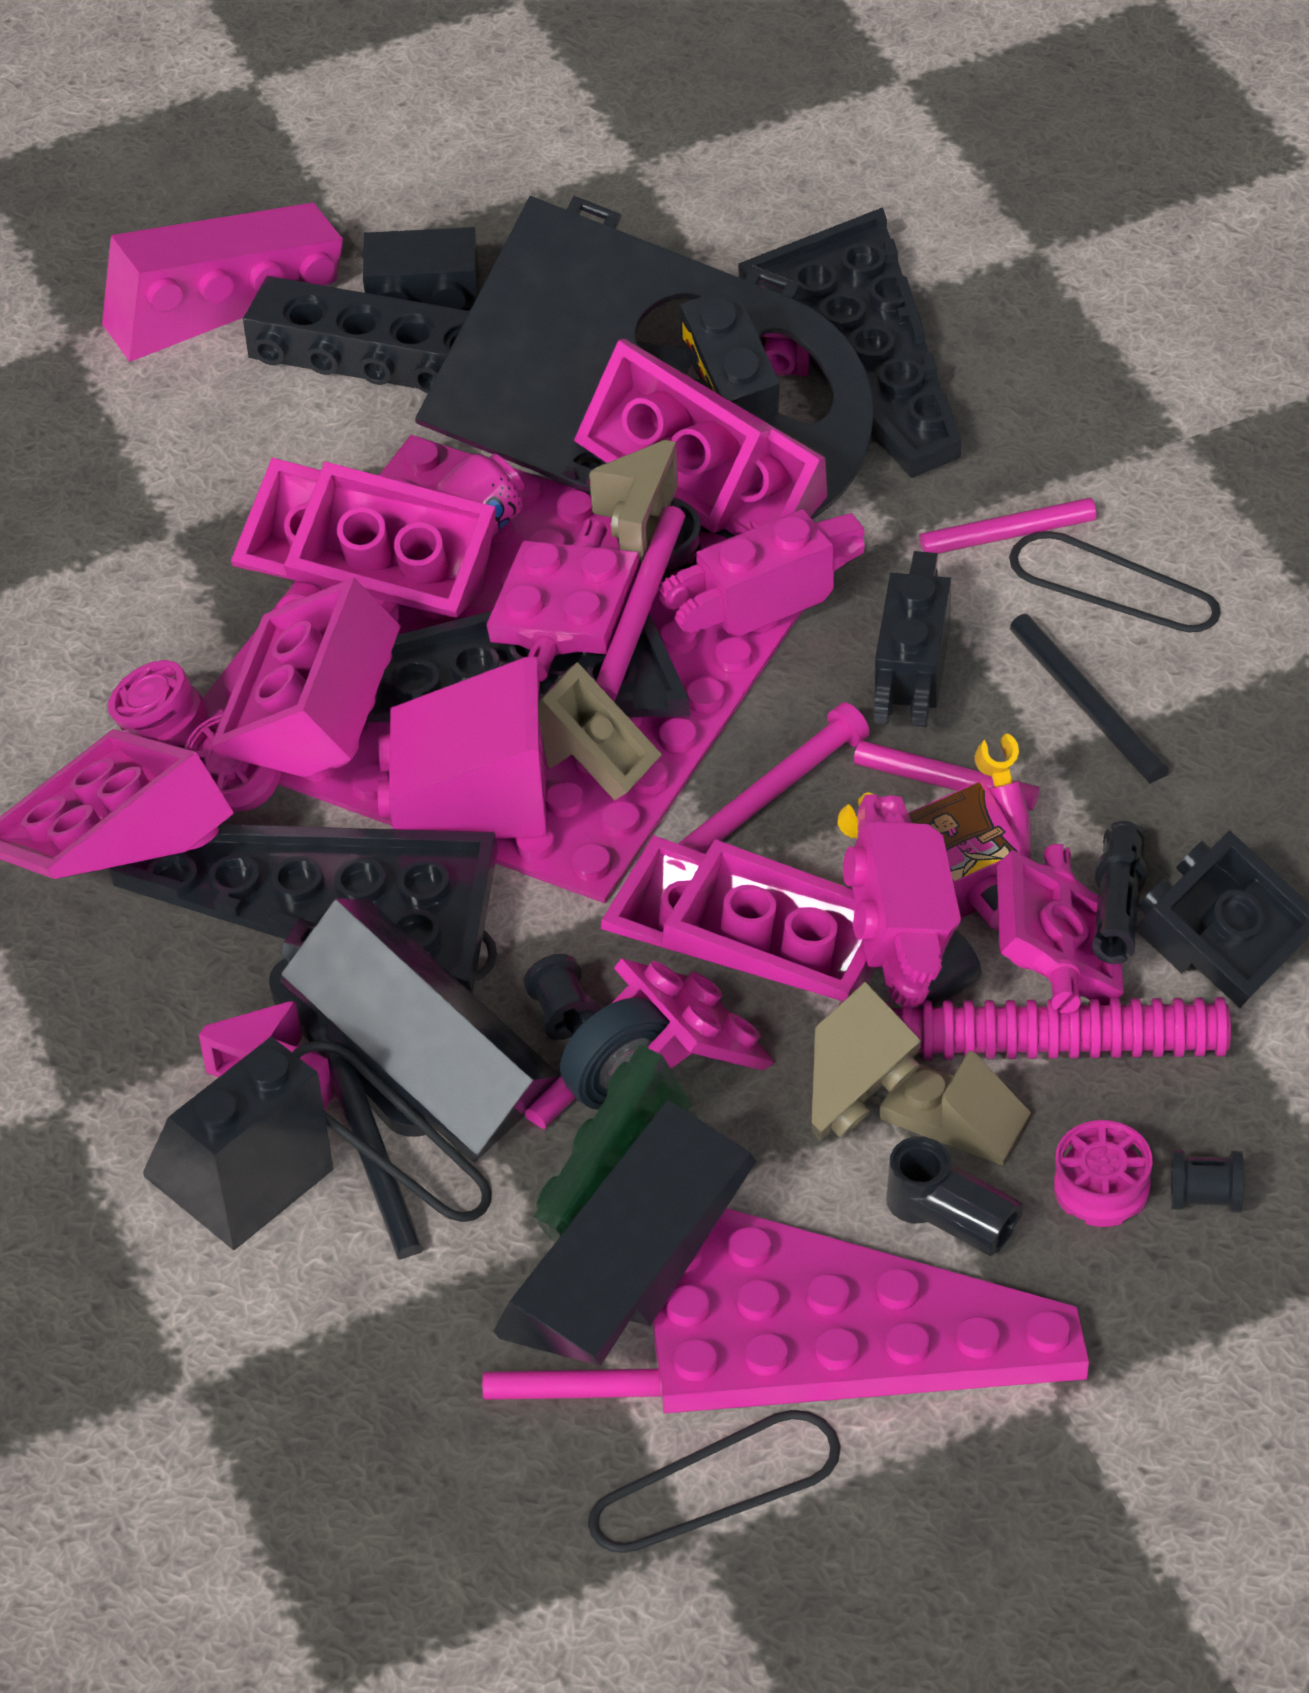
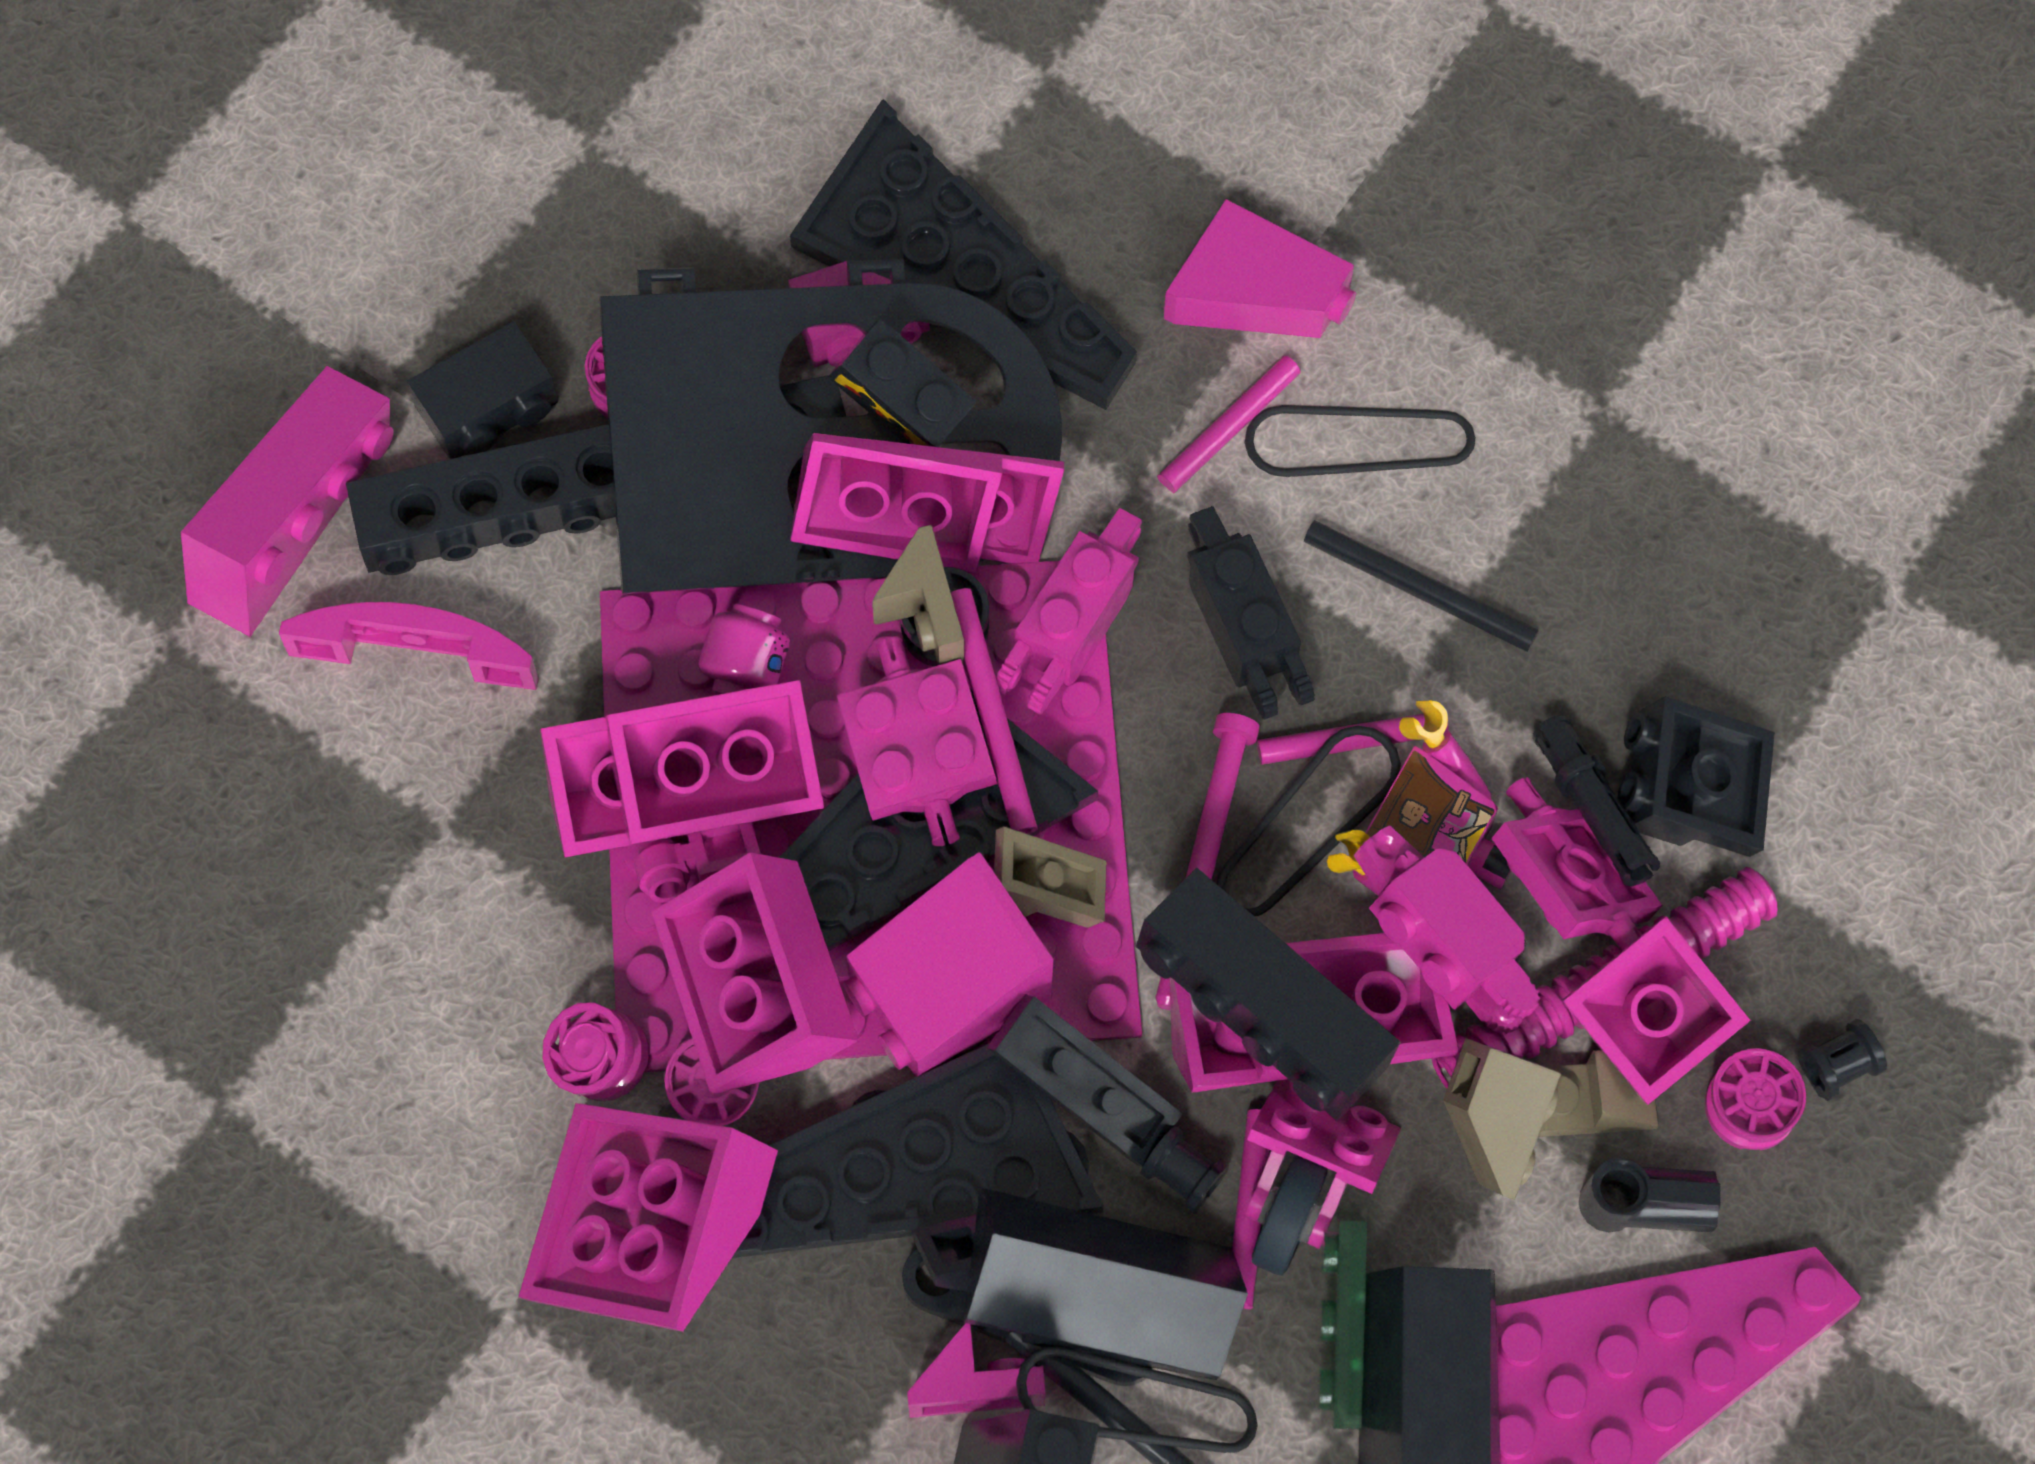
camera: 35 degrees left, 20 degrees up
(194, 371) = (334, 630): none -> dark pink slope
(518, 878) = (1084, 1080): none -> black plate
(701, 864) = (1266, 995): none -> black brick
(837, 793) = (1286, 797): none -> black piece
(1049, 1048) = (1656, 1010): none -> dark pink slope
(1100, 433) = (1259, 280): none -> dark pink slope

